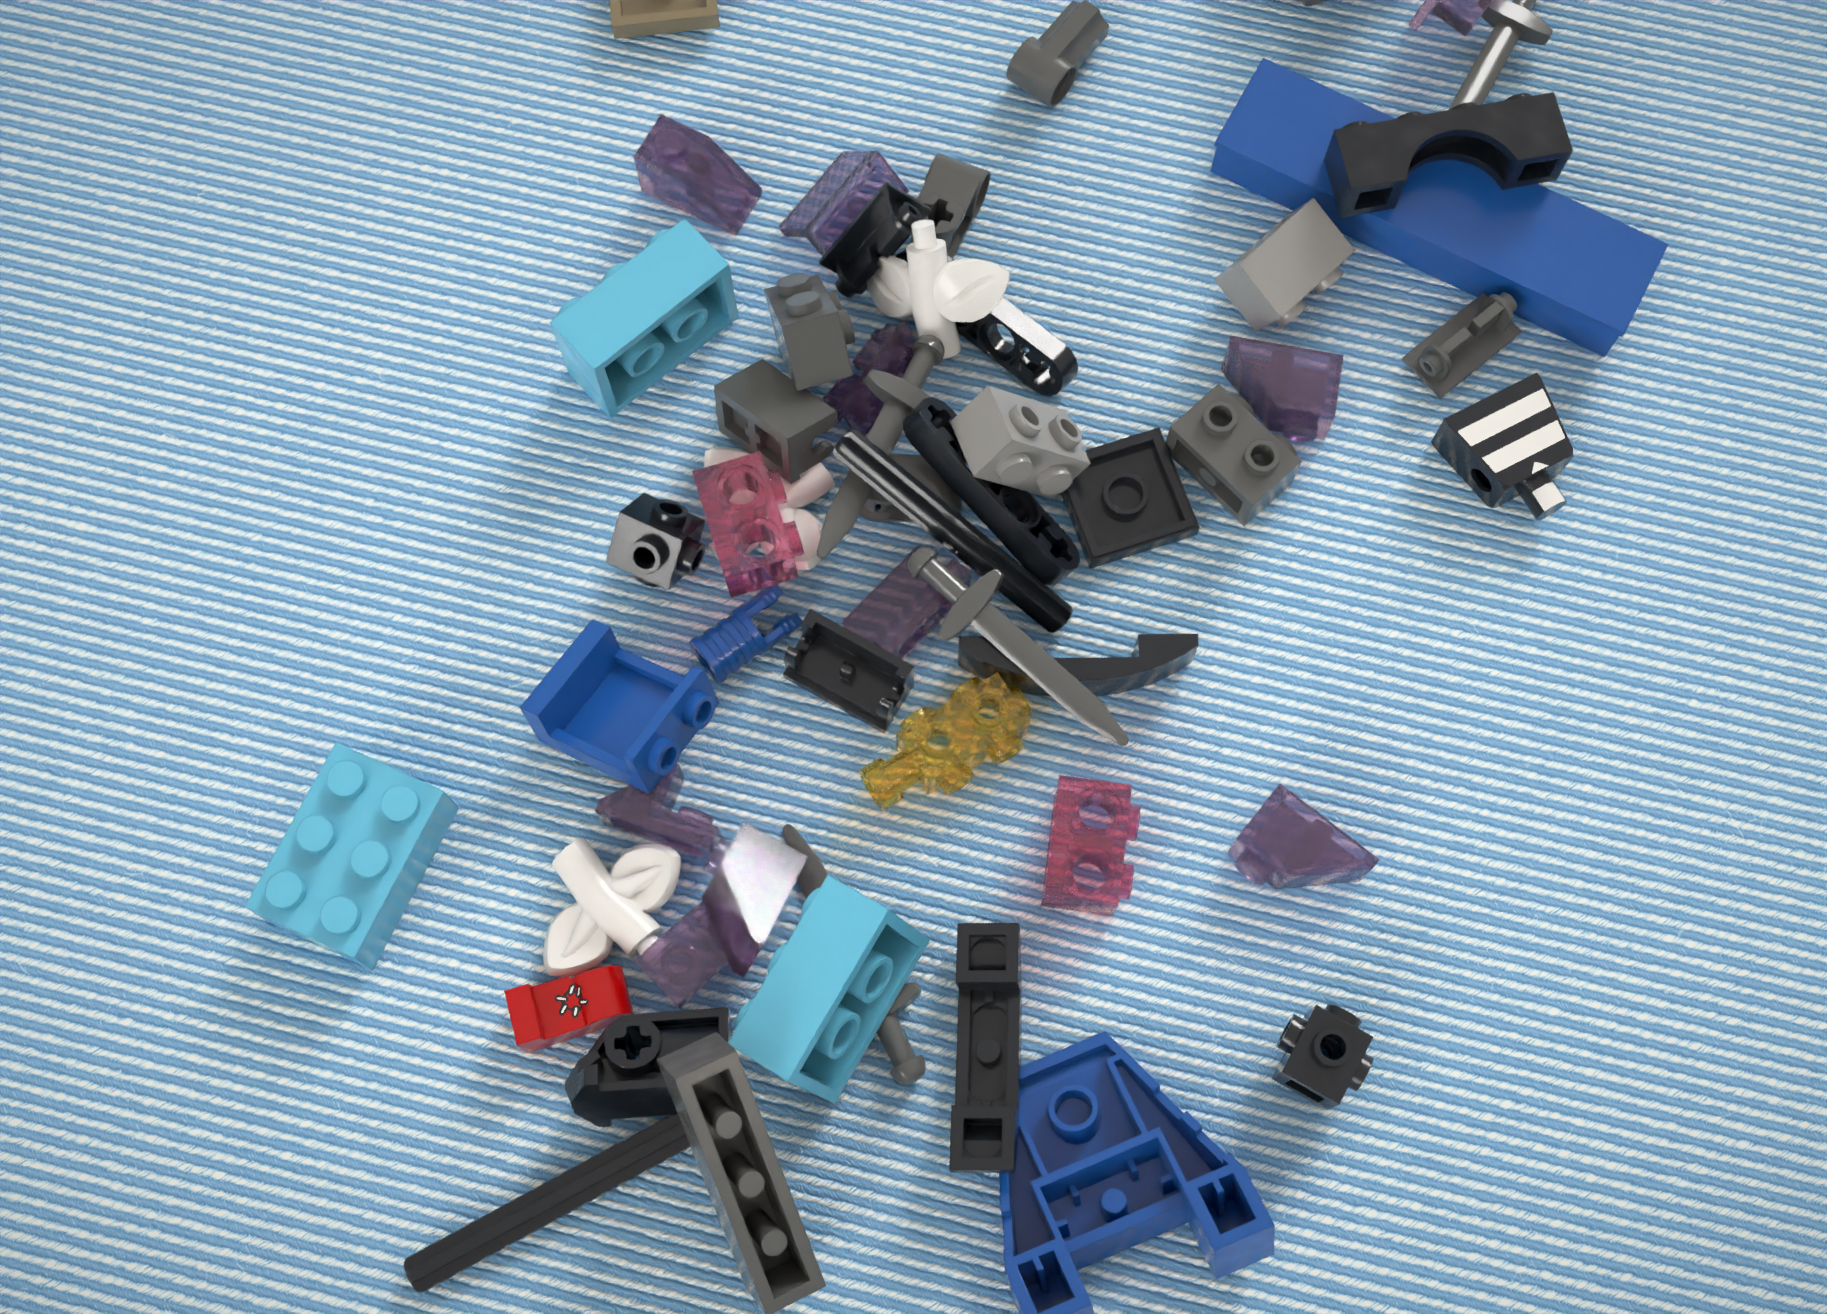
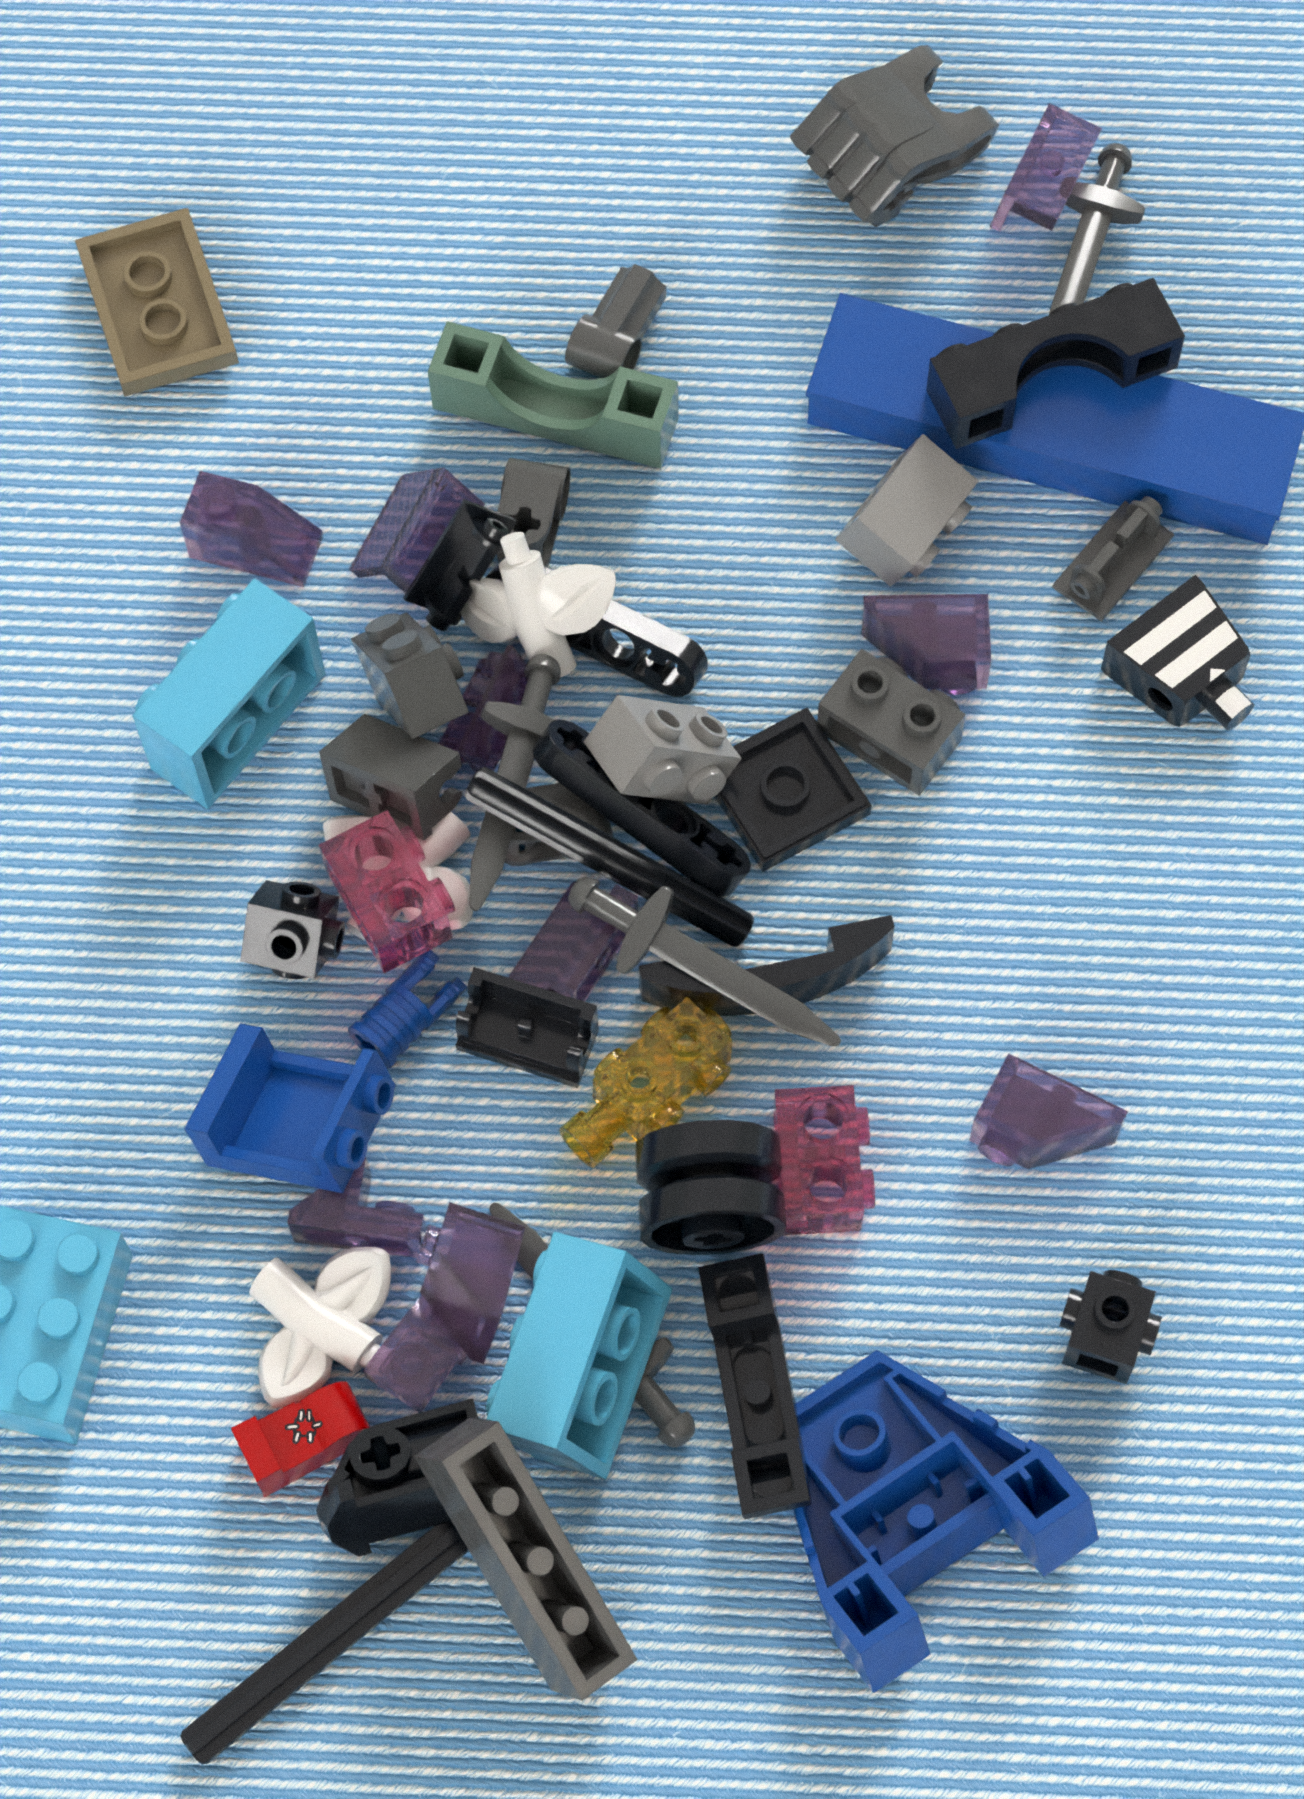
camera: 10 degrees left, 5 degrees down
(935, 82) = (490, 382): none -> sand green arch
(982, 854) = (710, 1187): none -> black wheel

